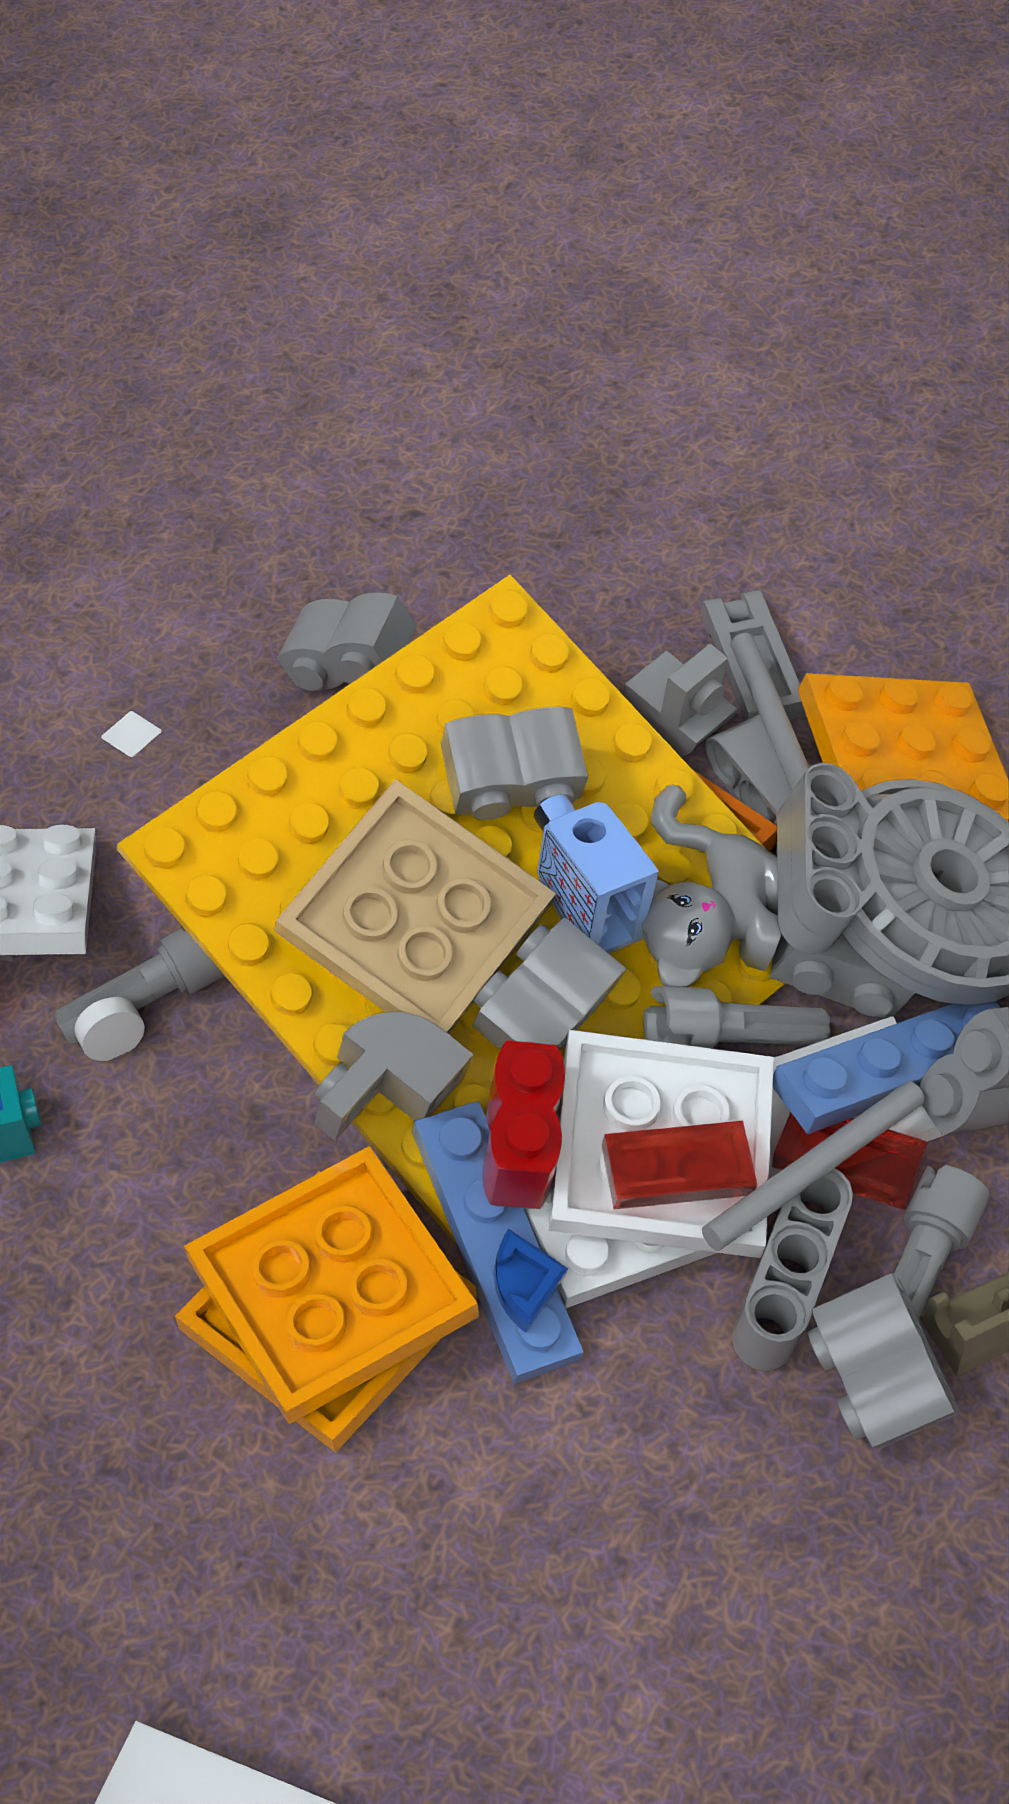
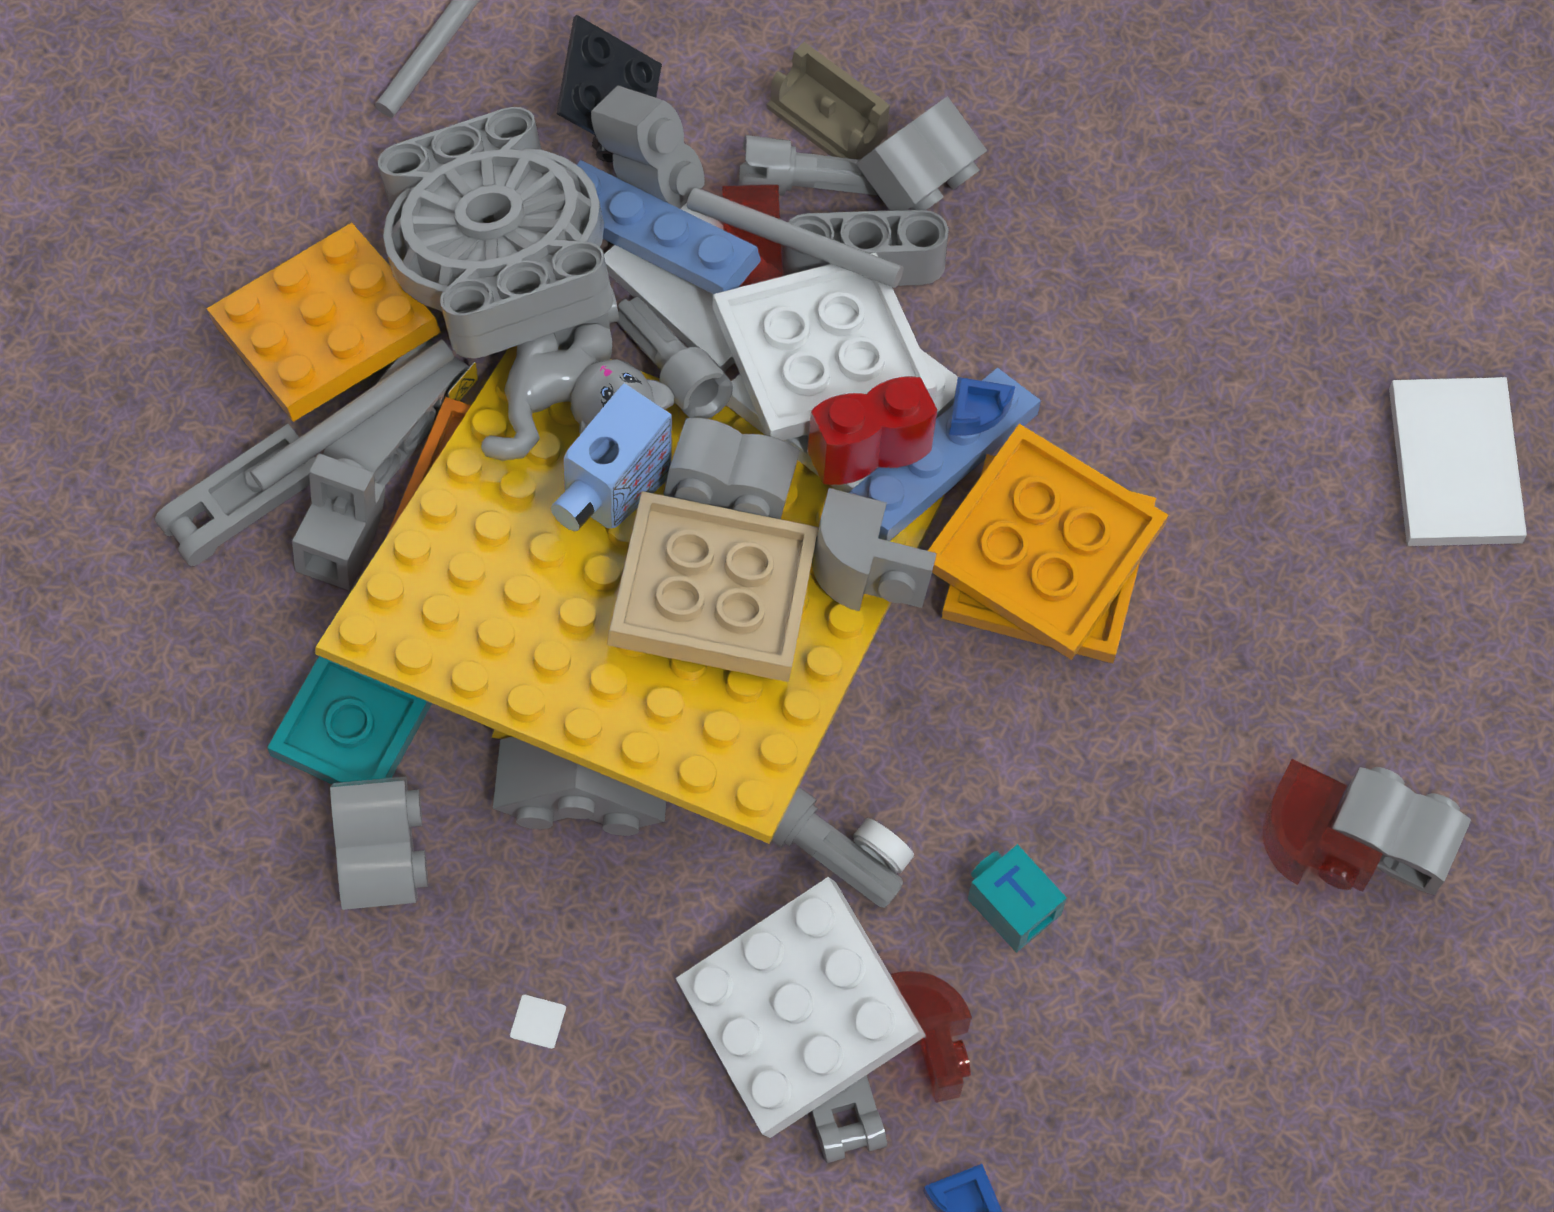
camera: 120 degrees left, 15 degrees up
(512, 760) = (534, 559): light grey brick -> none
(678, 1164) = (849, 317): clear red tile -> none

